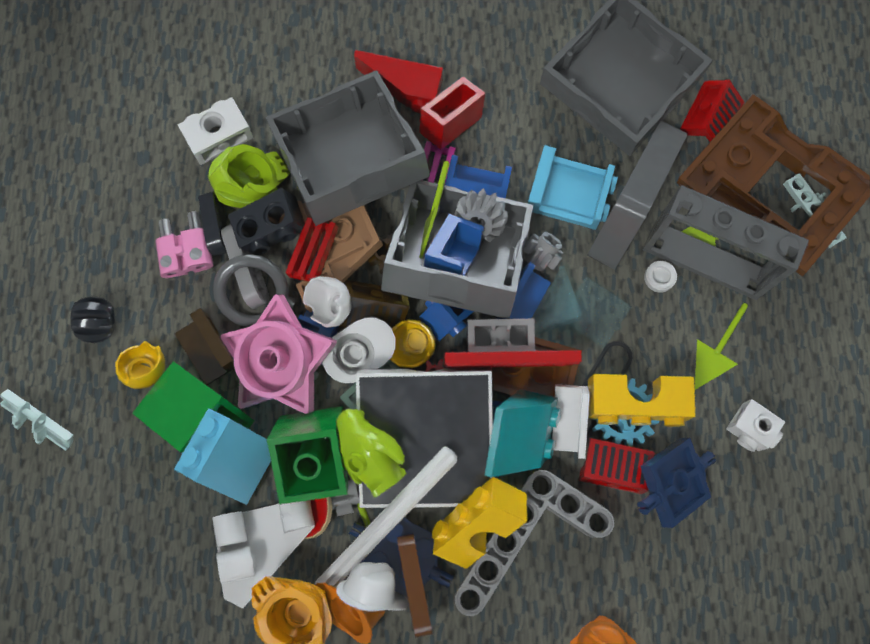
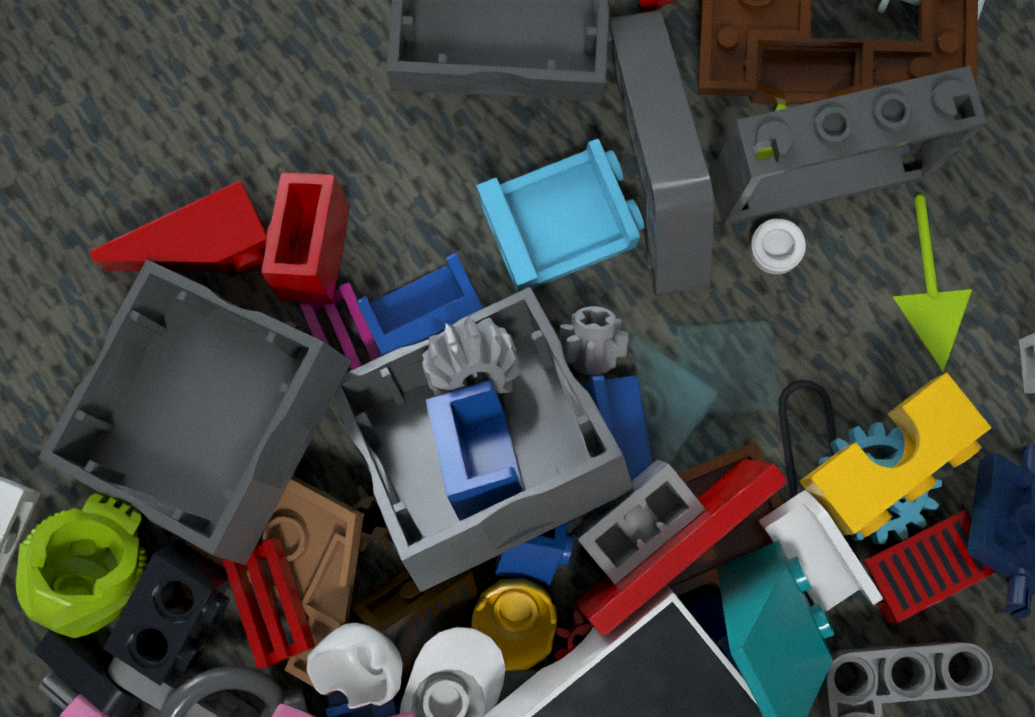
camera: 35 degrees left, 5 degrees up
(430, 220) = (403, 424): lime piece -> none

